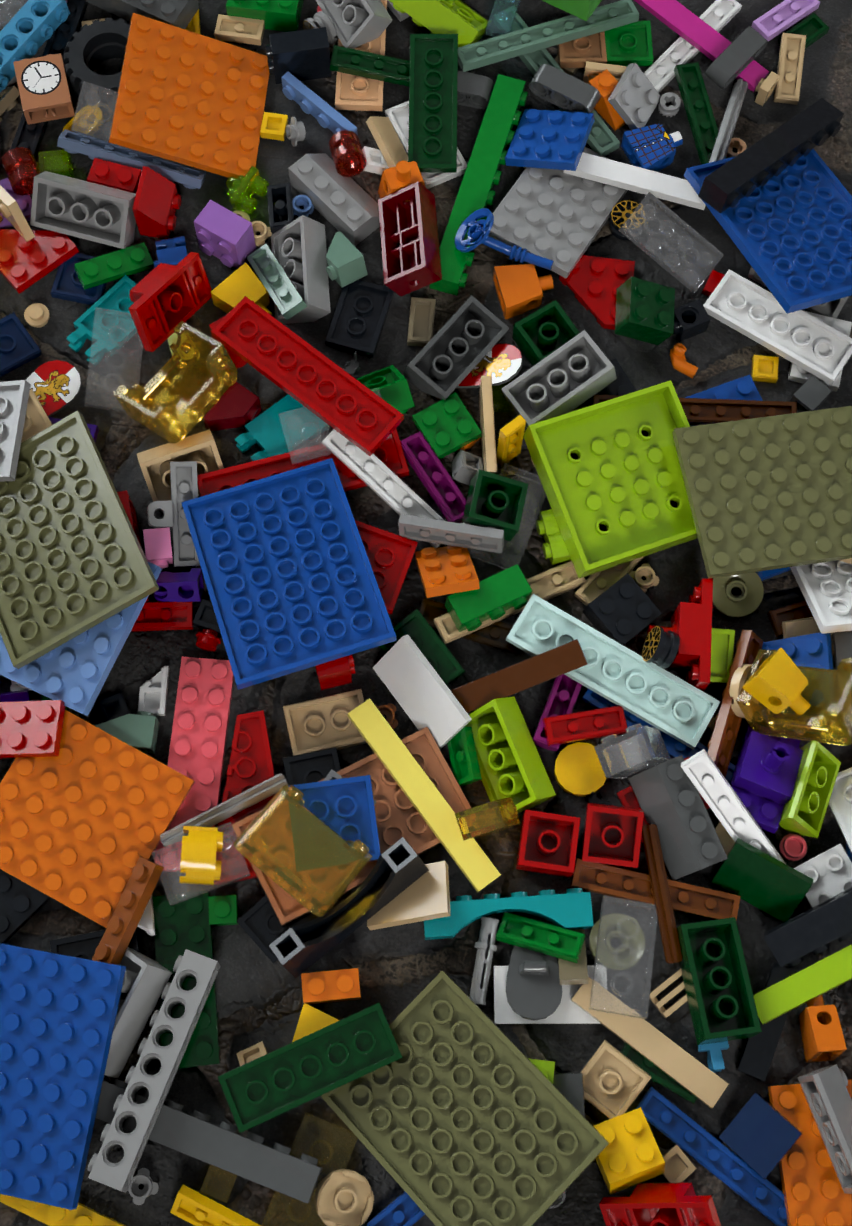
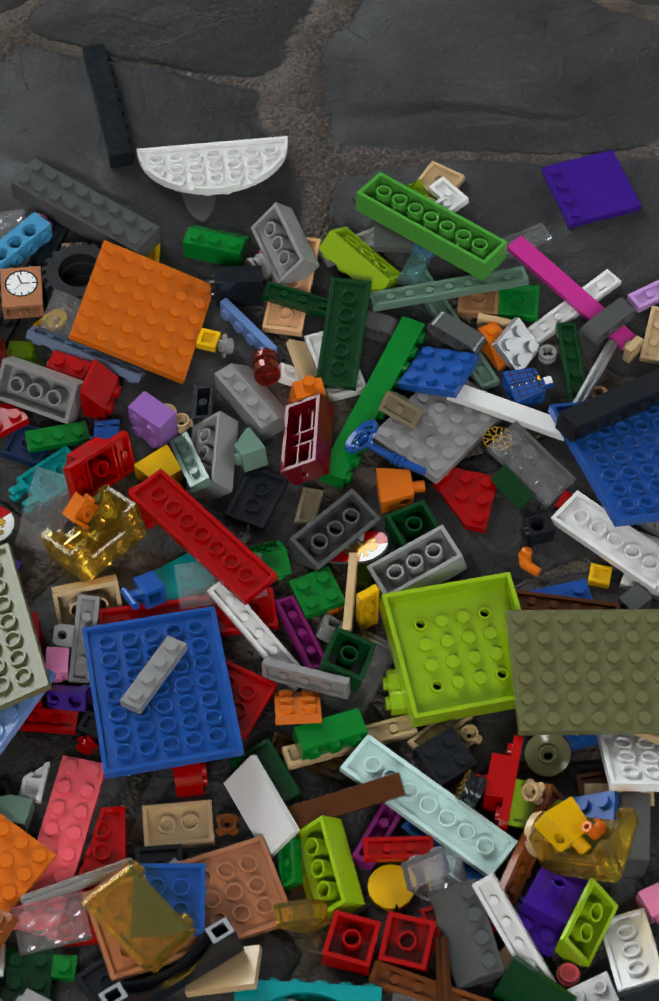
camera: 10 degrees right, 15 degrees down
(157, 356) = (81, 509): none -> orange brick
(199, 855) = (51, 910): yellow brick -> none
(233, 409) = (137, 560): dark red slope -> none
(239, 29) = (191, 261): tan plate -> none
(243, 188) = (175, 386): clear neon green hips -> none
(250, 446) = (147, 590): none -> blue brick
(275, 553) = (153, 674): none -> light grey plate
(302, 200) = (222, 401): medium blue plate -> none
(422, 794) = (250, 890): light yellow tile -> none
(515, 191) = (402, 409): none -> dark tan panel
(644, 311) = (499, 517): dark green brick -> none
(652, 269) = (512, 486): none -> dark green tile
(728, 648) = (527, 791): none -> tan plate
(813, 684) = (594, 831): none -> orange arm

